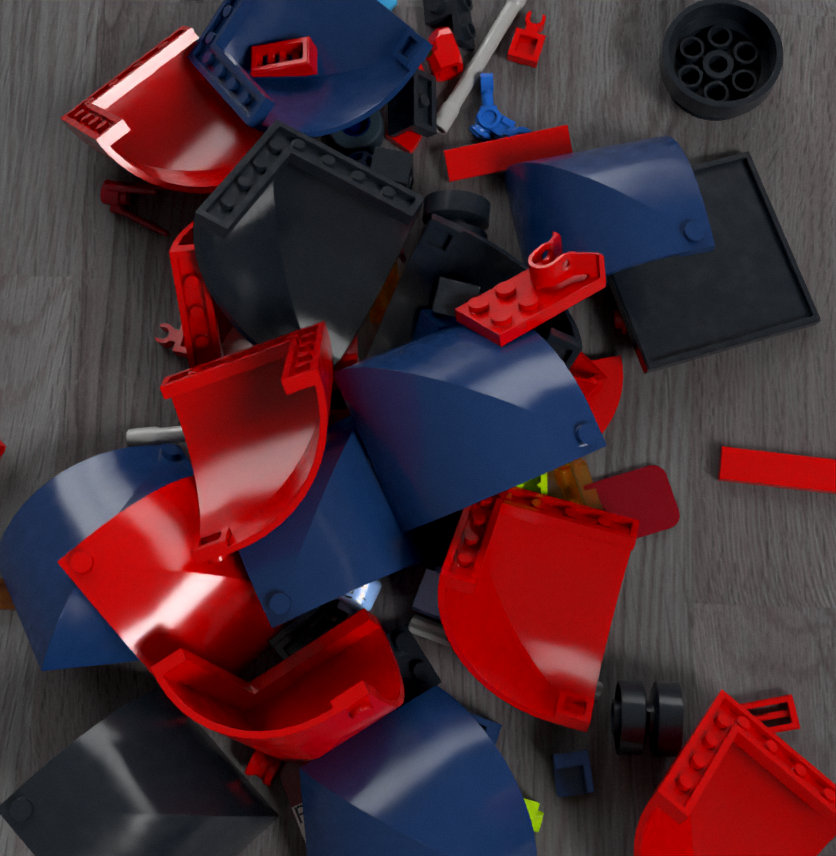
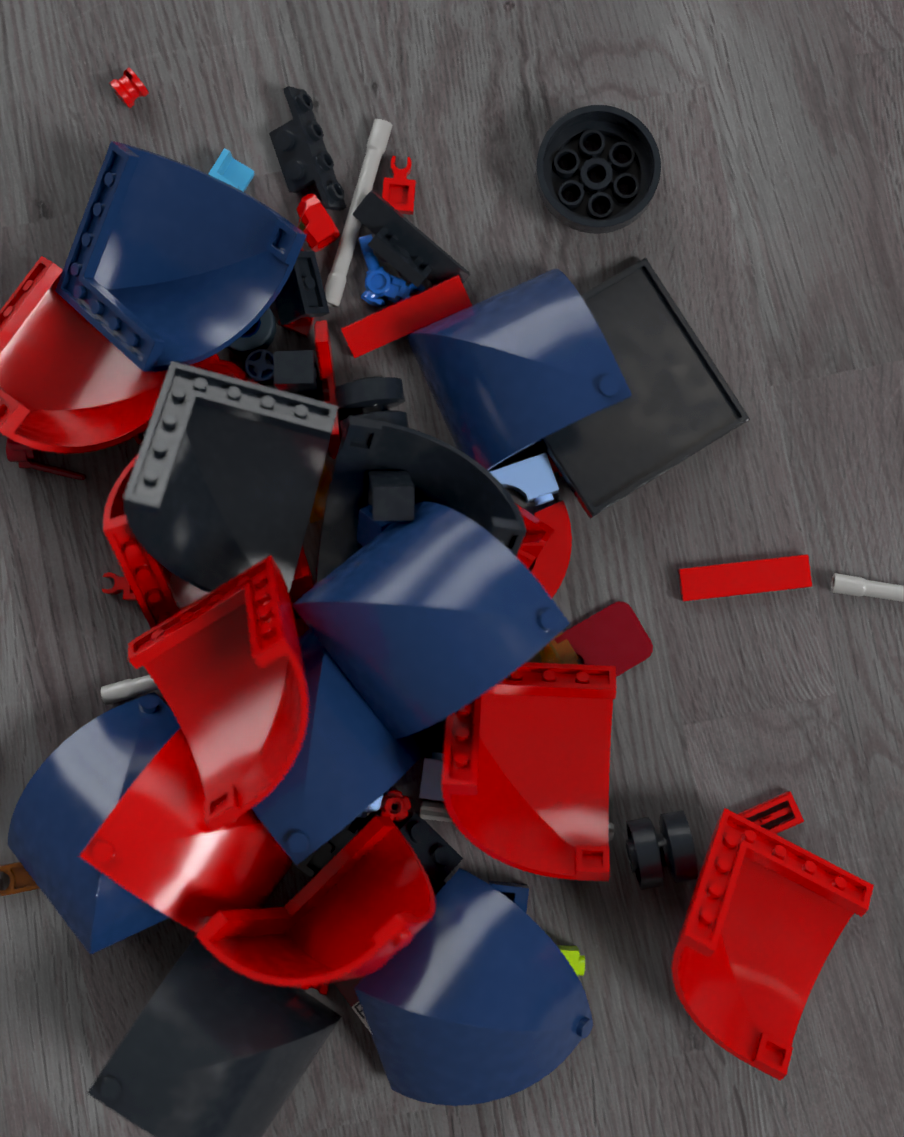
camera: 20 degrees left, 10 degrees up
(296, 67) = (166, 254): red slope -> none
(395, 612) = (403, 803): none -> red plate
(421, 185) = (327, 375): none -> red tile
(521, 87) = (405, 245): none -> black bracket
(534, 294) = (466, 484): red plate -> none
(572, 773) = (603, 913): dark blue panel -> none
(597, 327) = (530, 478): none -> light blue arch

